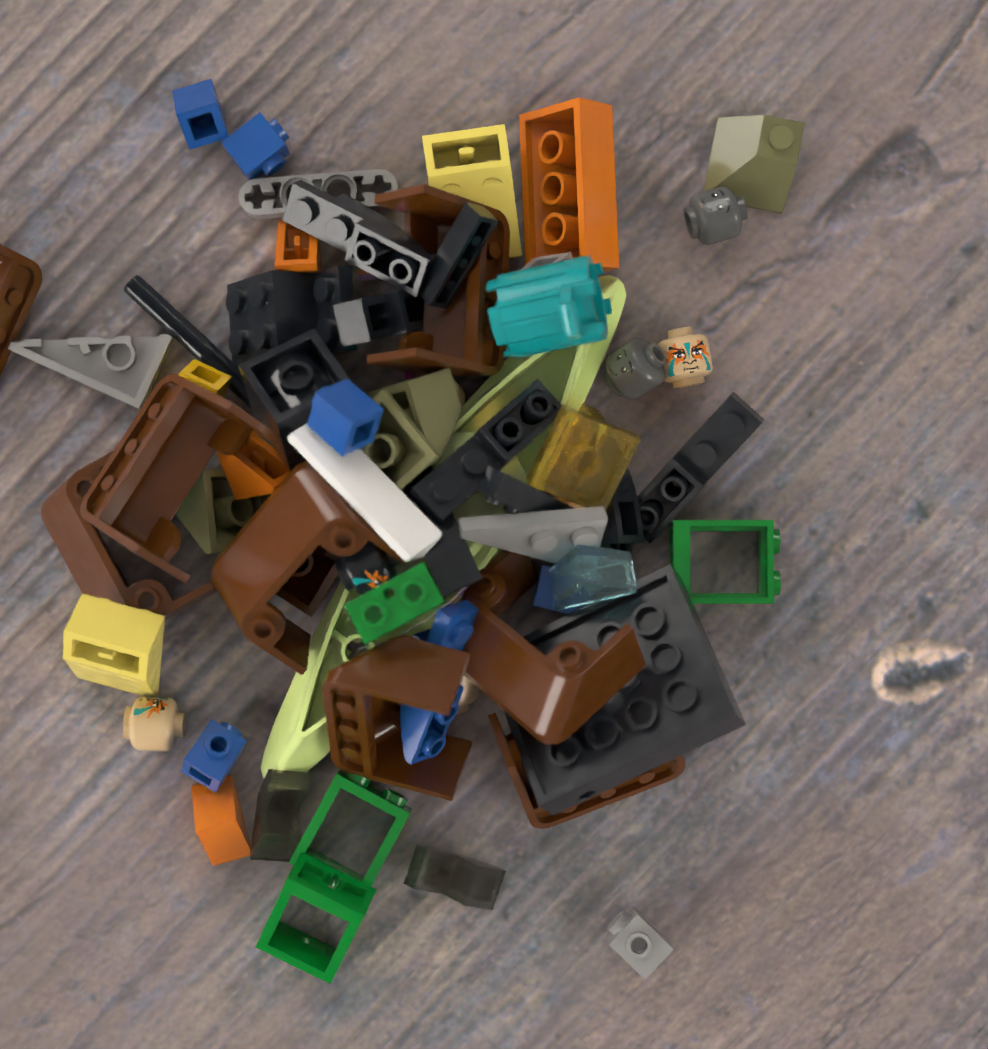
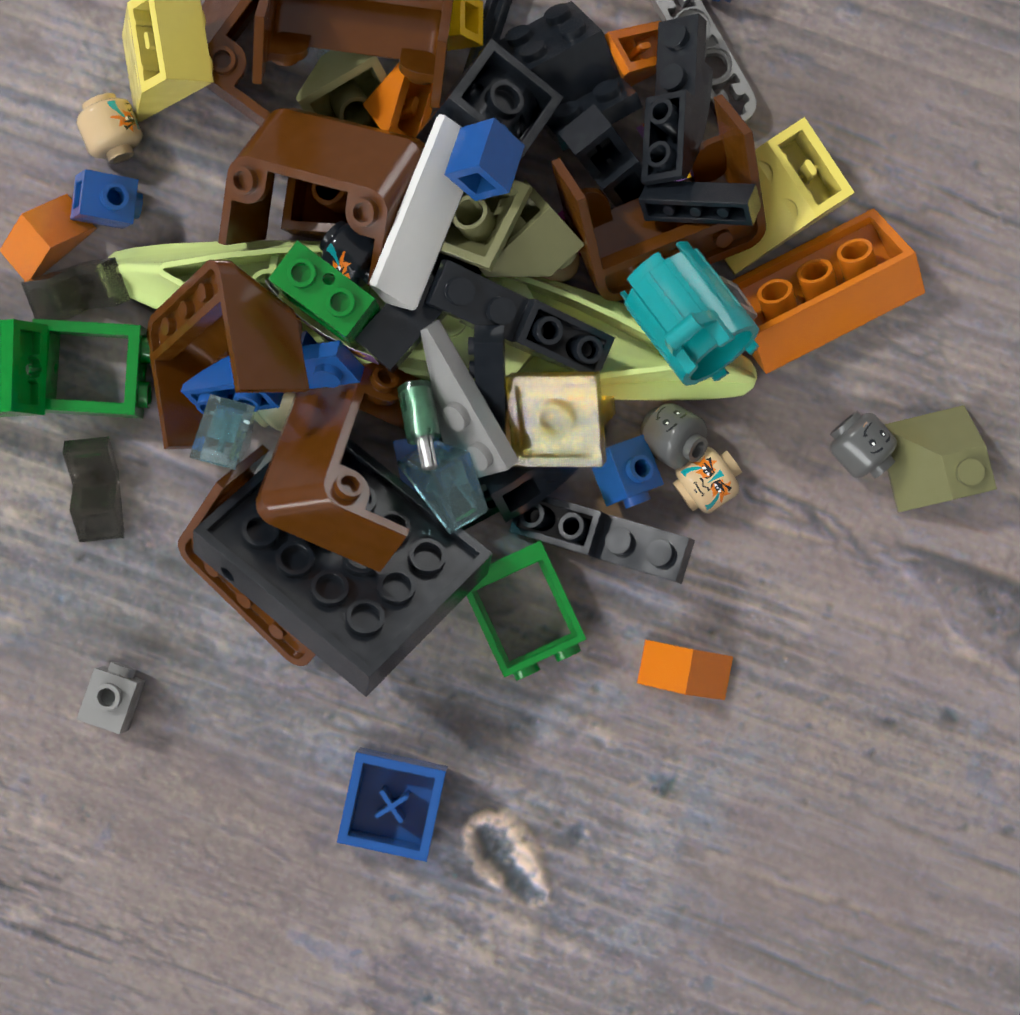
camera: 75 degrees right, 0 degrees up
(466, 744) = (224, 432): none -> clear light blue slope
(533, 572) = (420, 420): none -> clear green piece
(651, 419) = (628, 473): none -> blue brick
(833, 451) = (684, 670): none -> orange slope
(836, 745) = (392, 804): none -> blue brick

